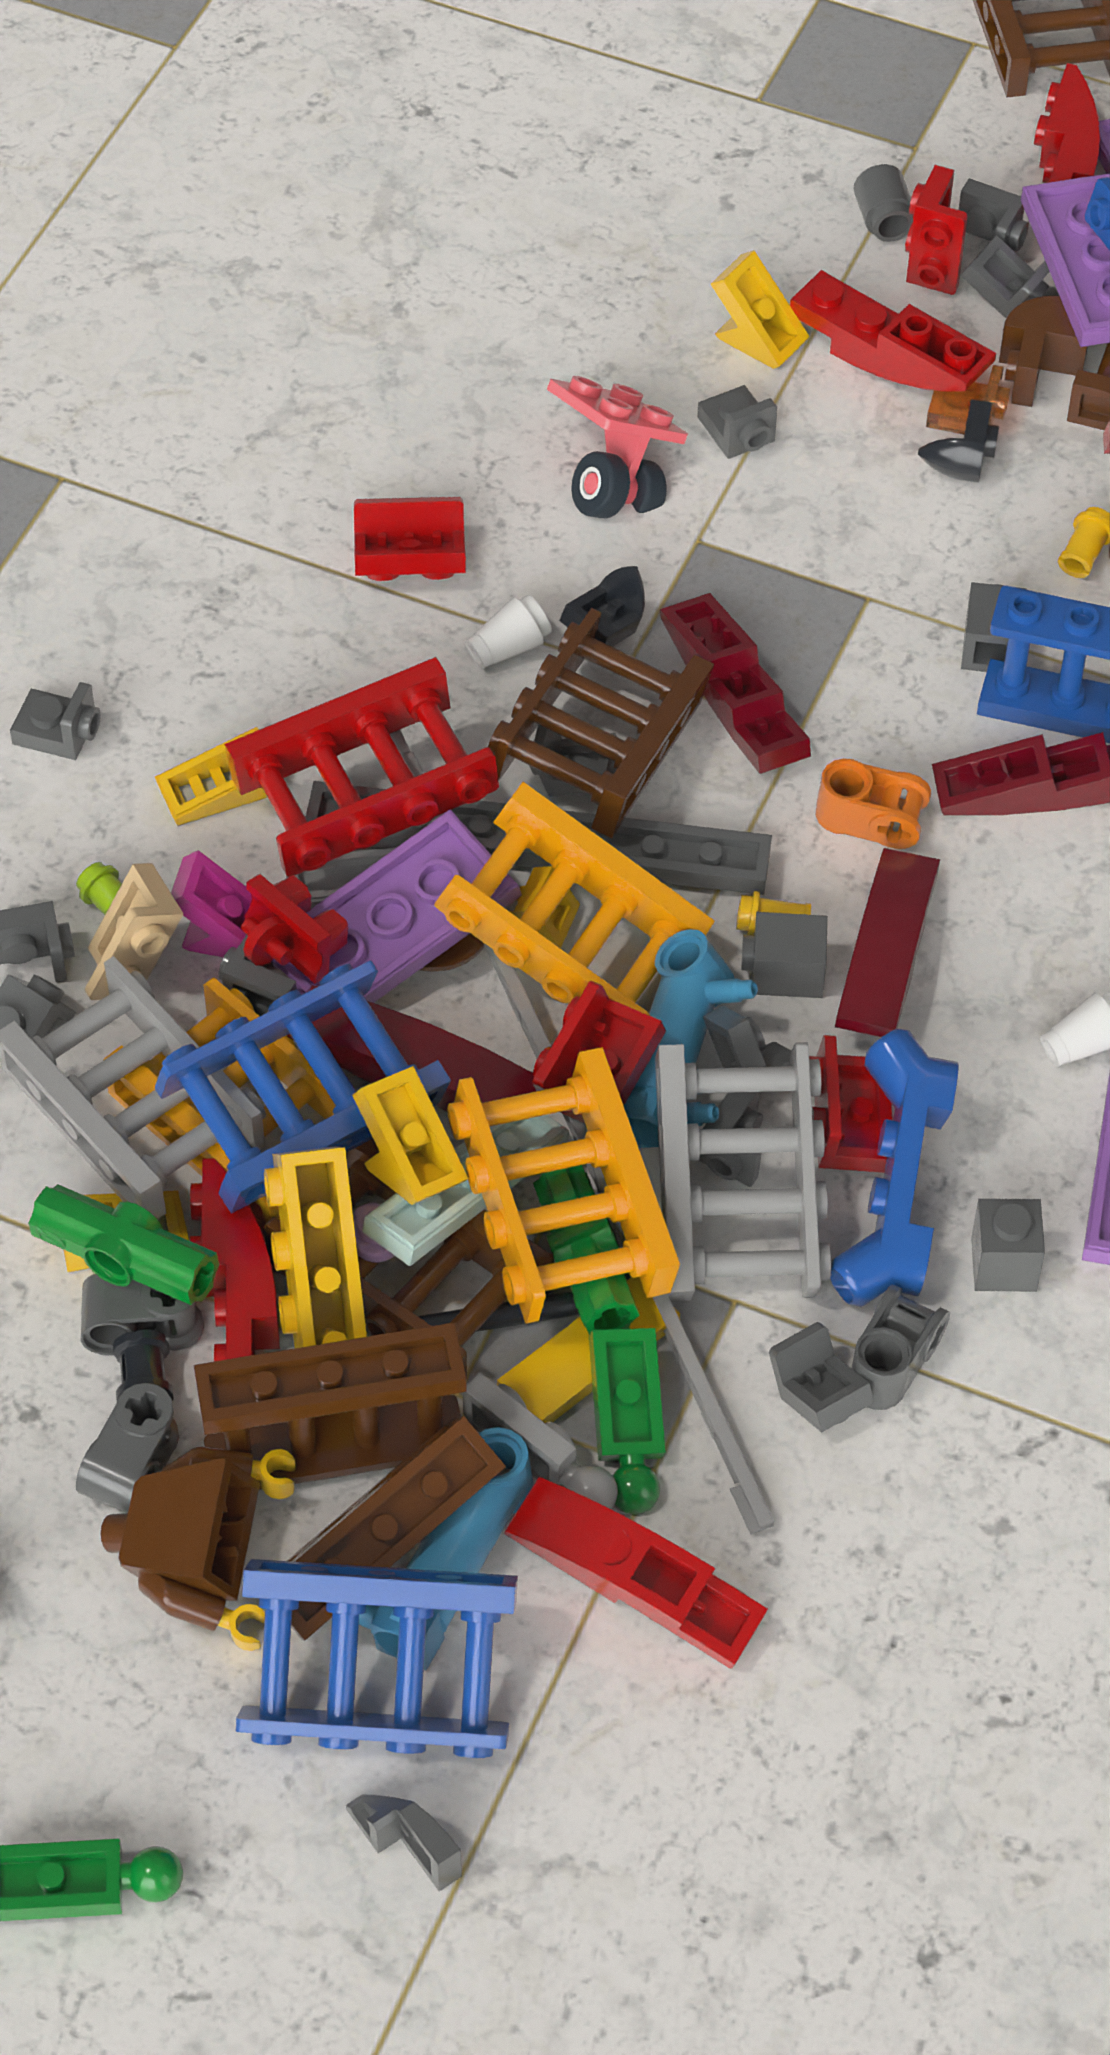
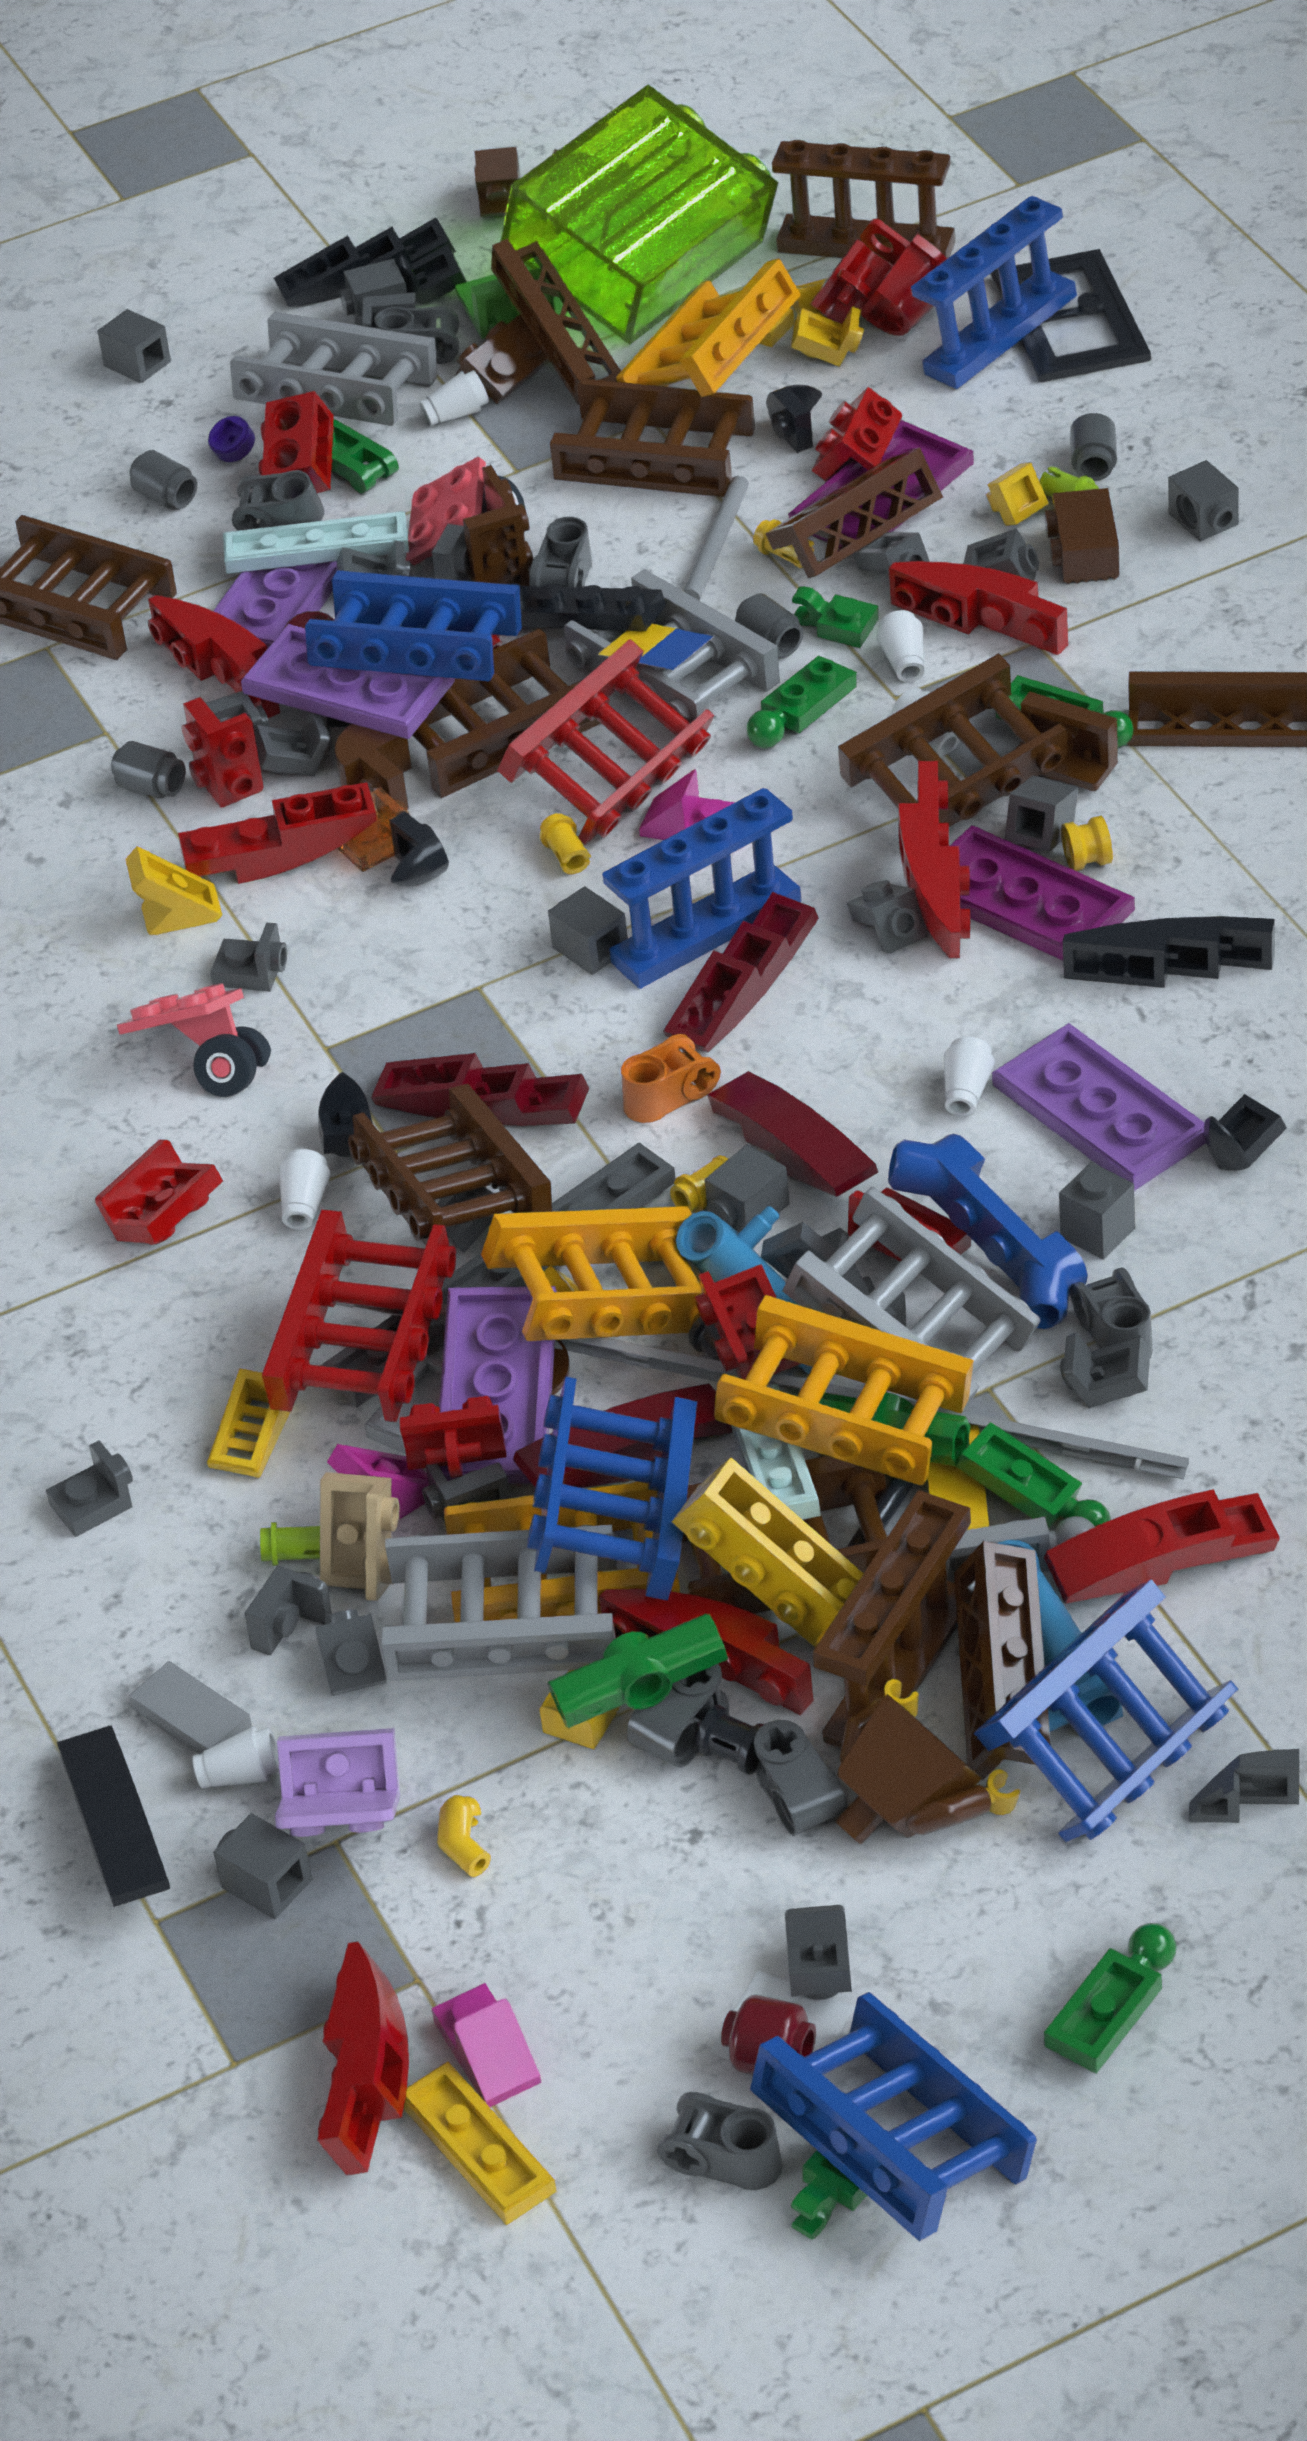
camera: 45 degrees left, 10 degrees down
(412, 1143) = (717, 1436): yellow slope -> none

